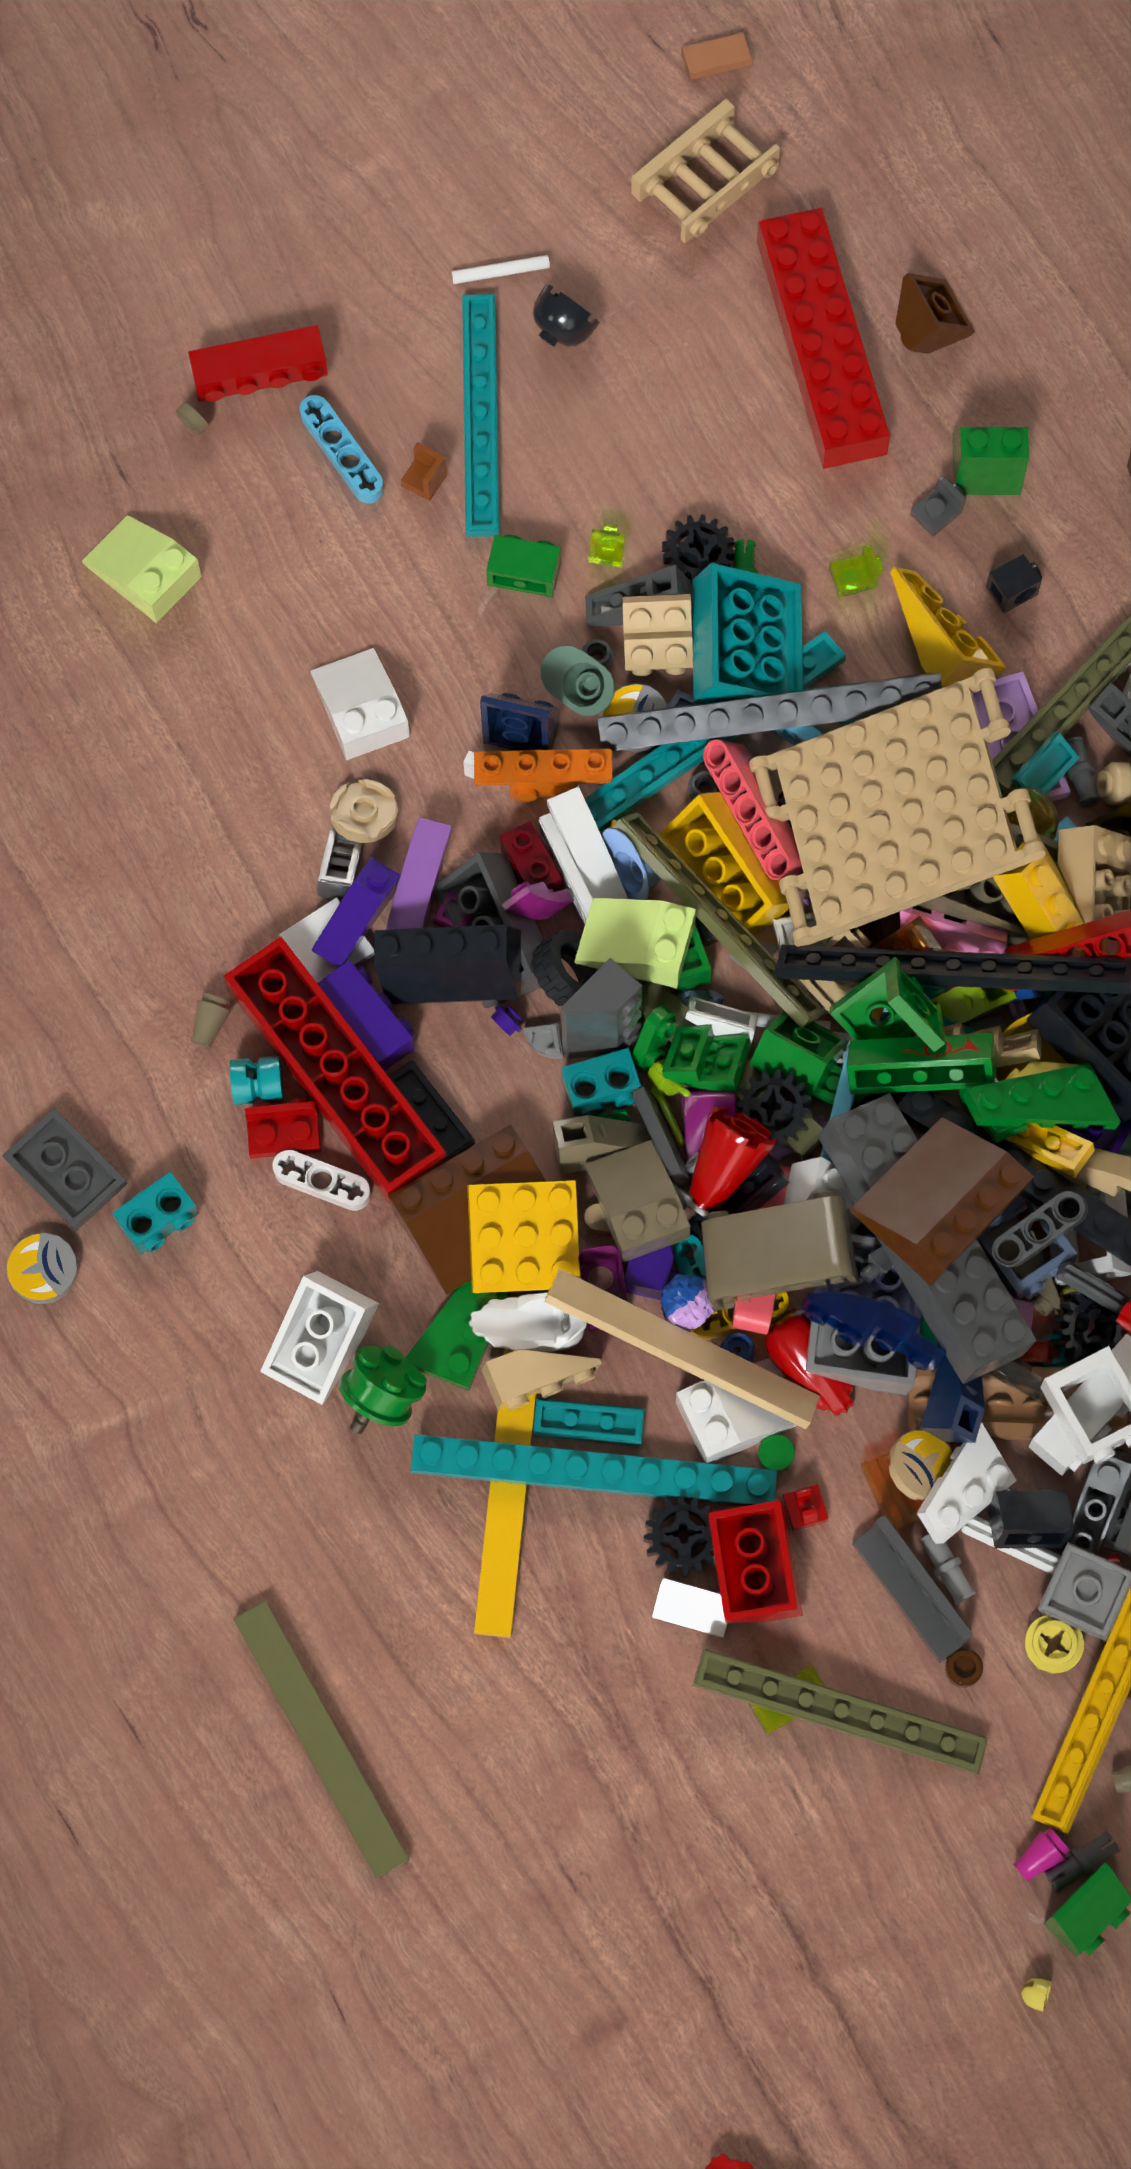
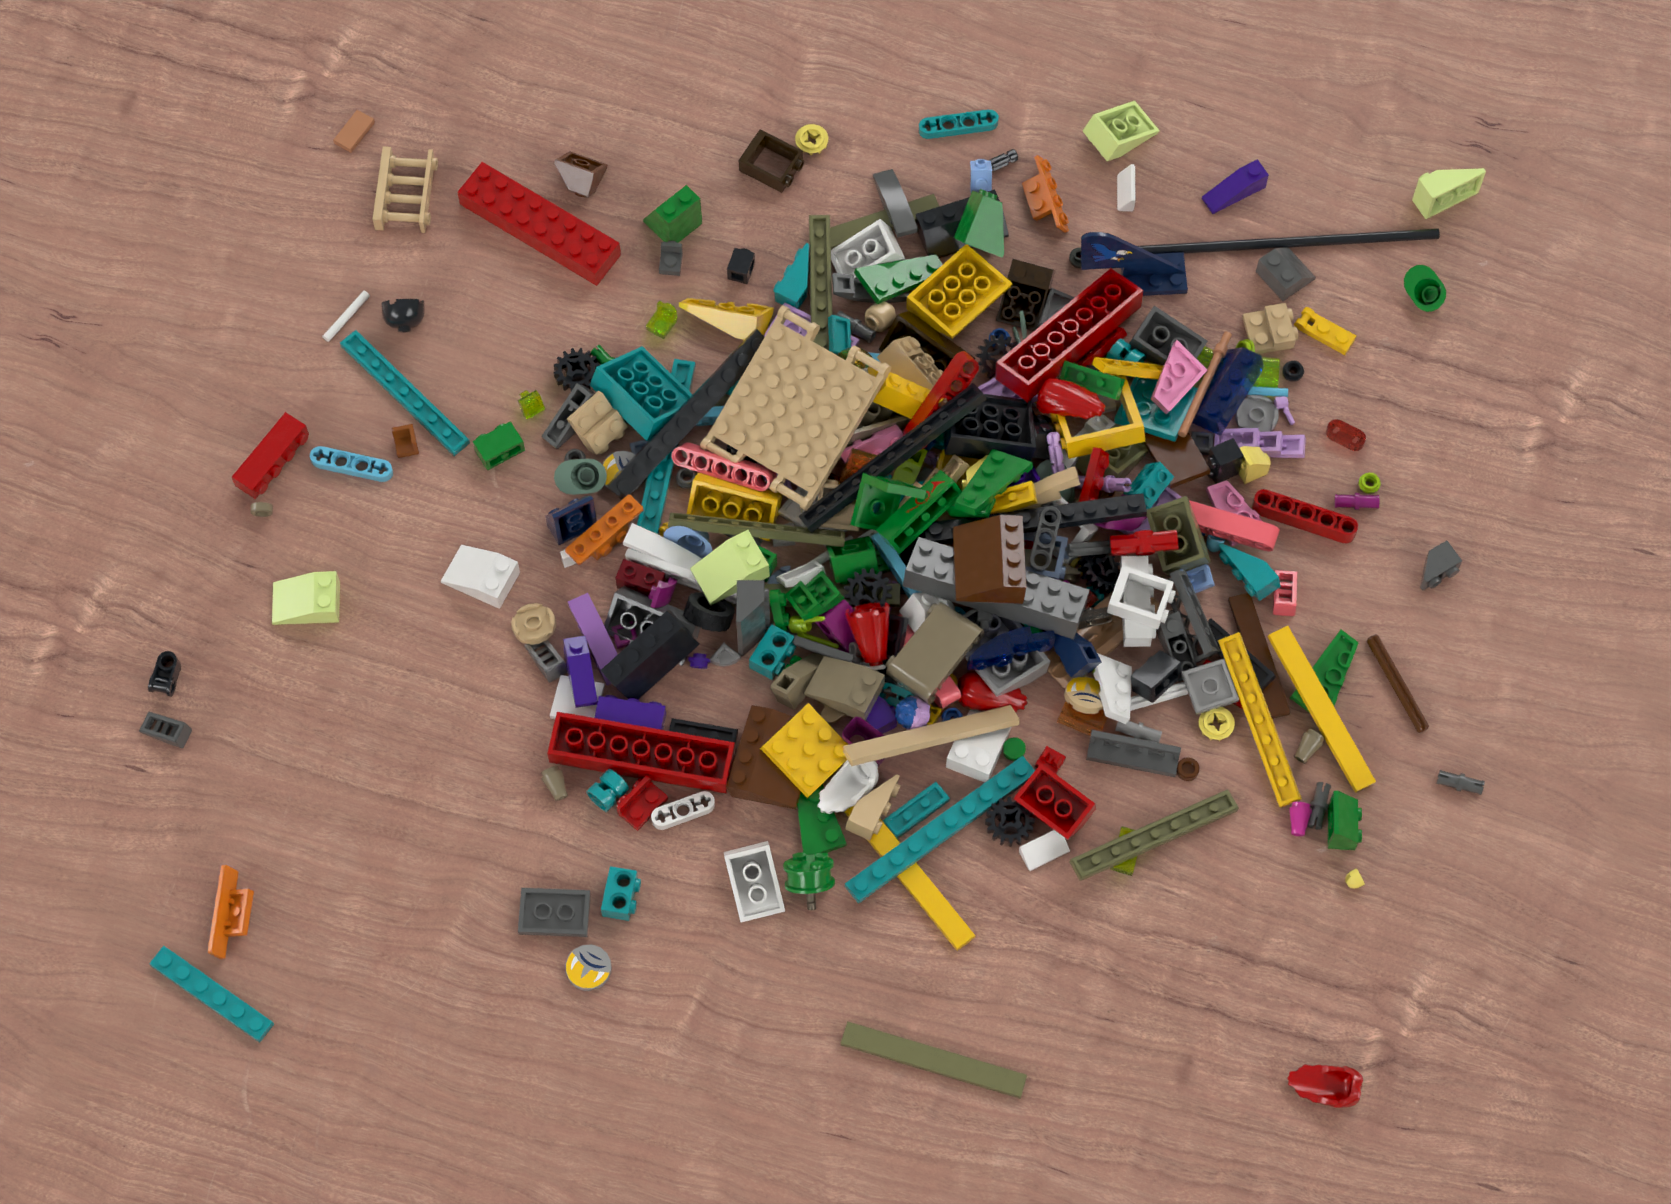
camera: 45 degrees left, 5 degrees down
(1054, 660) = (794, 285): none -> teal slope

